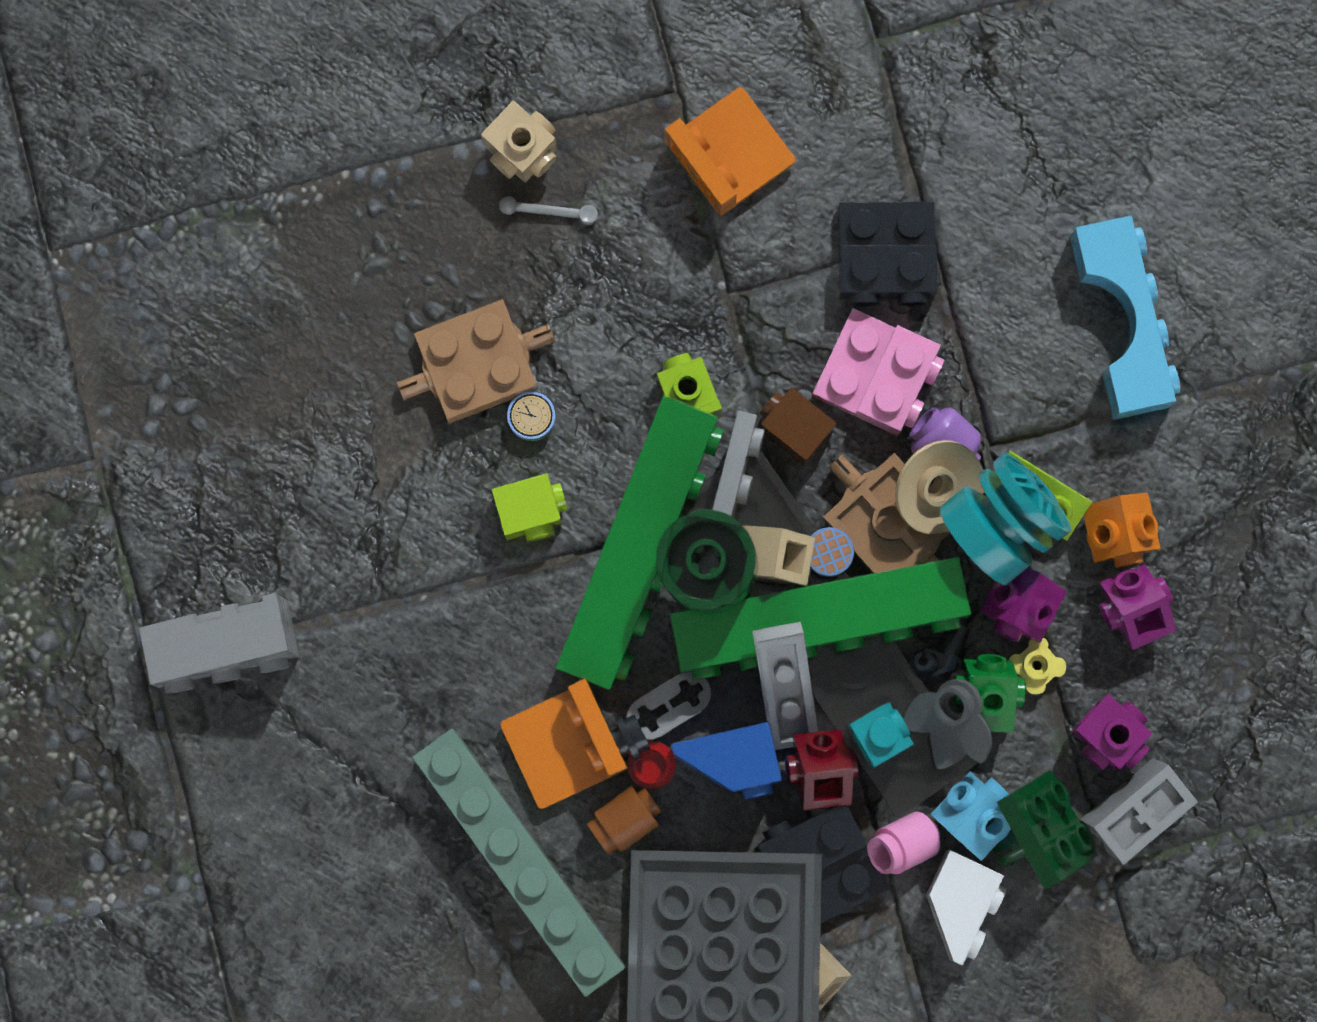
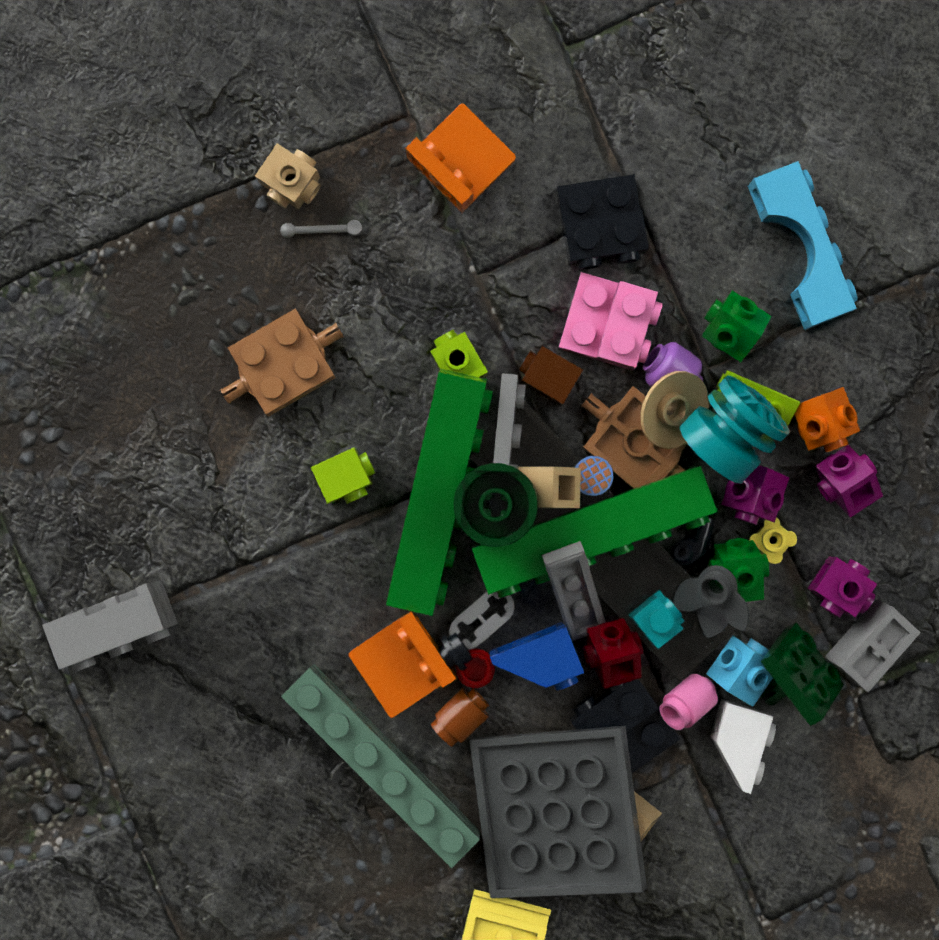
camera: 10 degrees left, 5 degrees up
(531, 416) = (334, 400): tile -> none
(1027, 398) = (735, 325): none -> green brick

